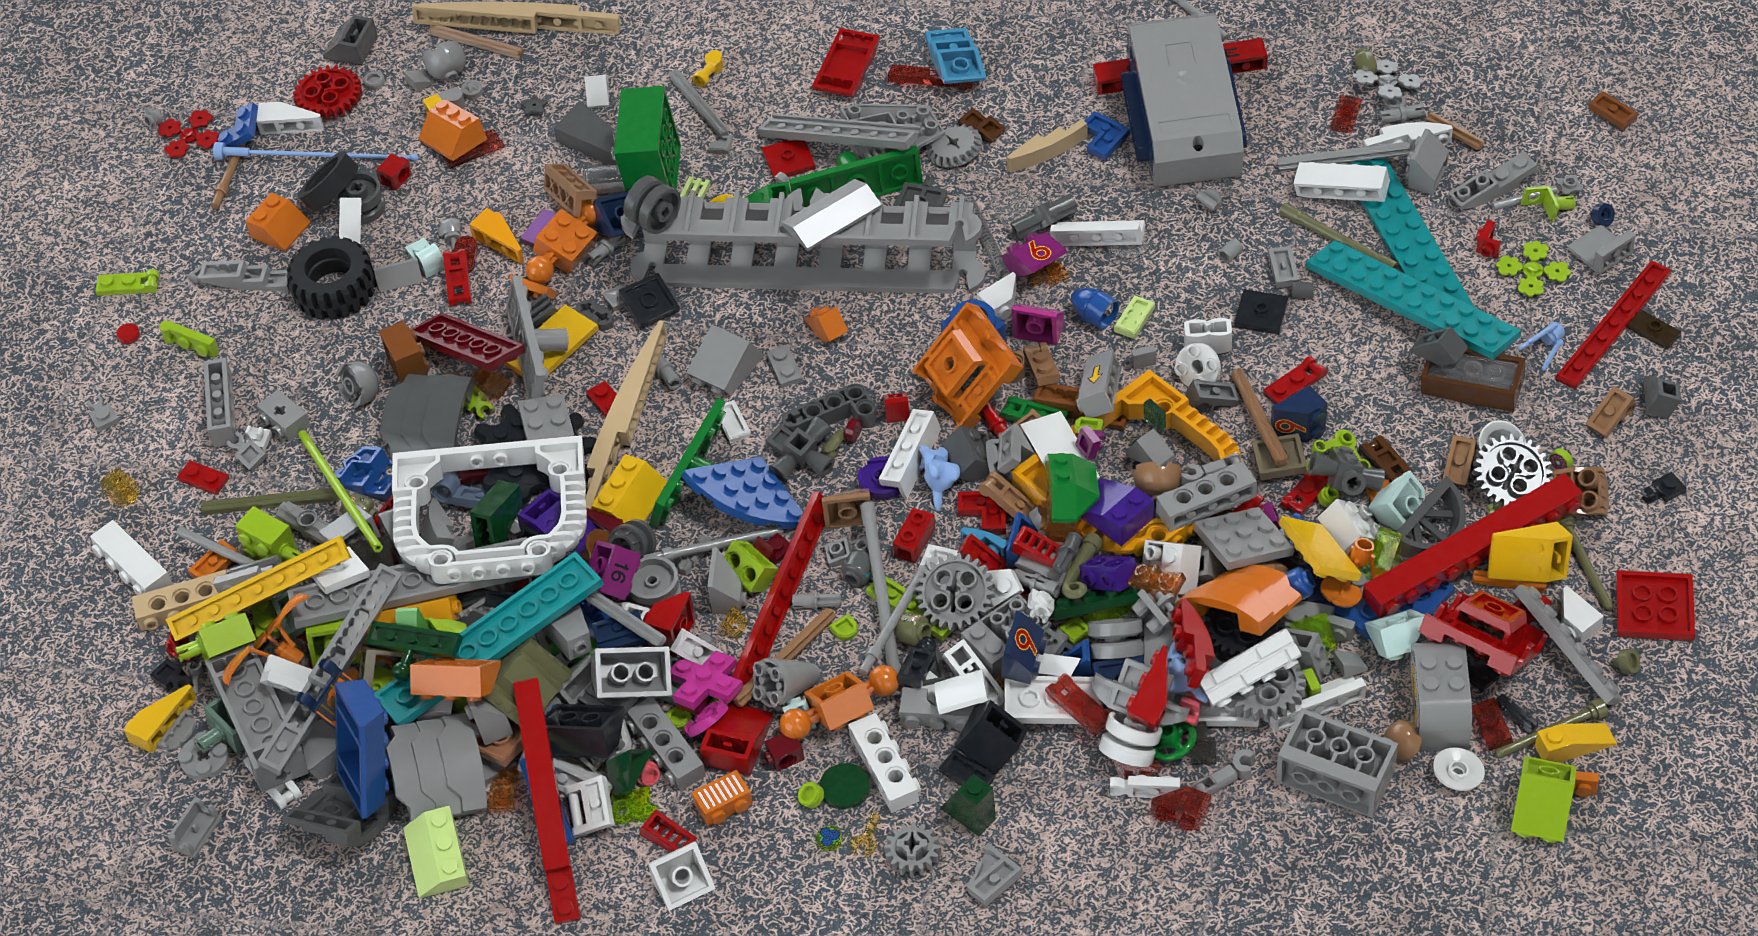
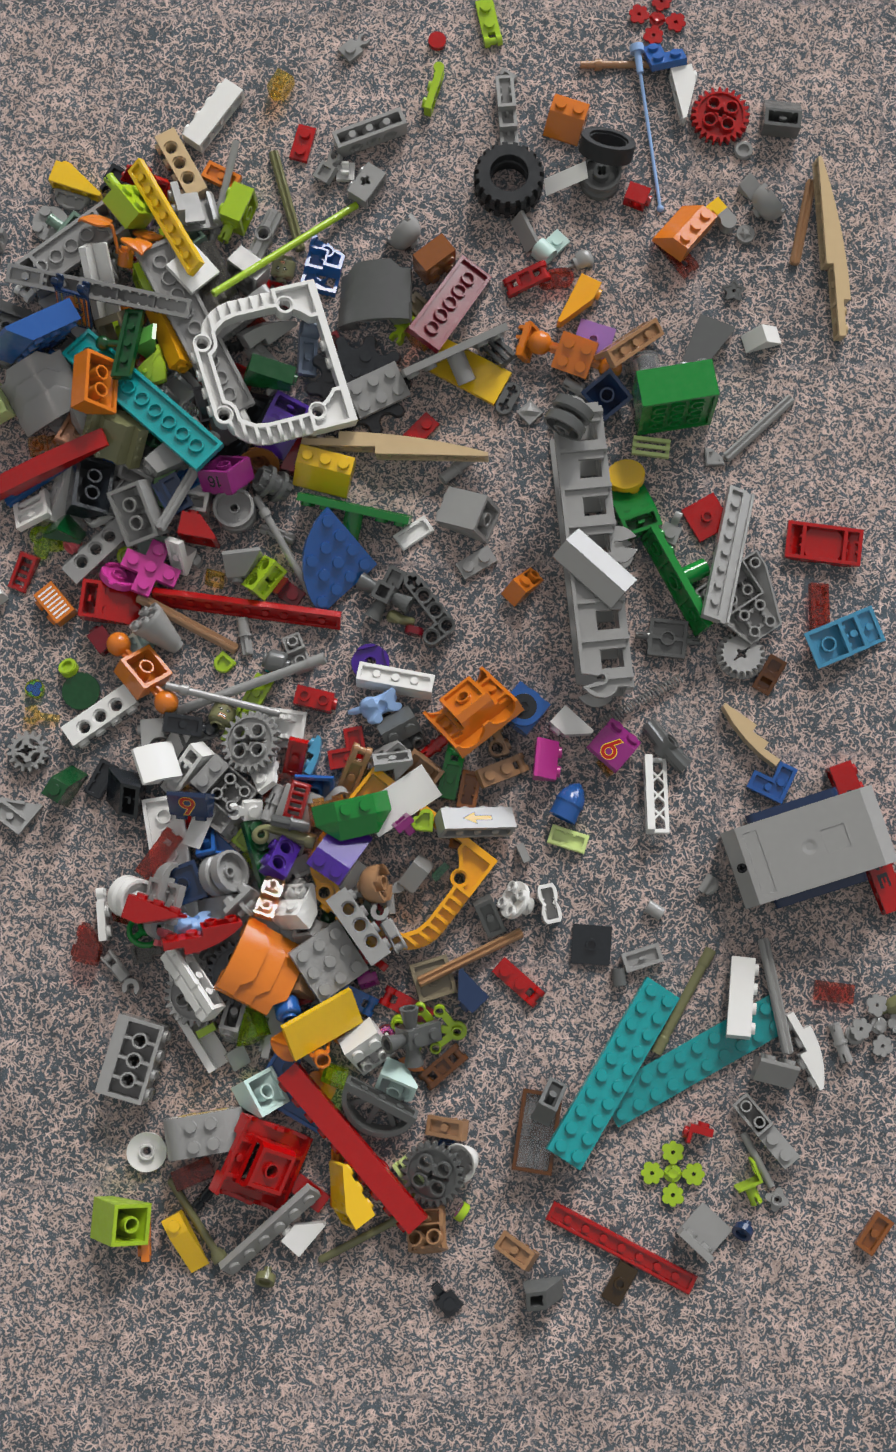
camera: 75 degrees right, 30 degrees up
(649, 300) = (525, 438): black plate -> none
(713, 65) = (805, 430): yellow leg -> none
(844, 508) = (333, 644): medium nougat slope -> none
(896, 407) = (446, 659): red slope -> none
(1405, 735) = (165, 1105): medium nougat hair -> none
(1458, 132) = (826, 1093): medium nougat axle -> none
(1550, 335) = (597, 1194): light blue plant -> none
(1655, 605) = (324, 1297): red plate -> none

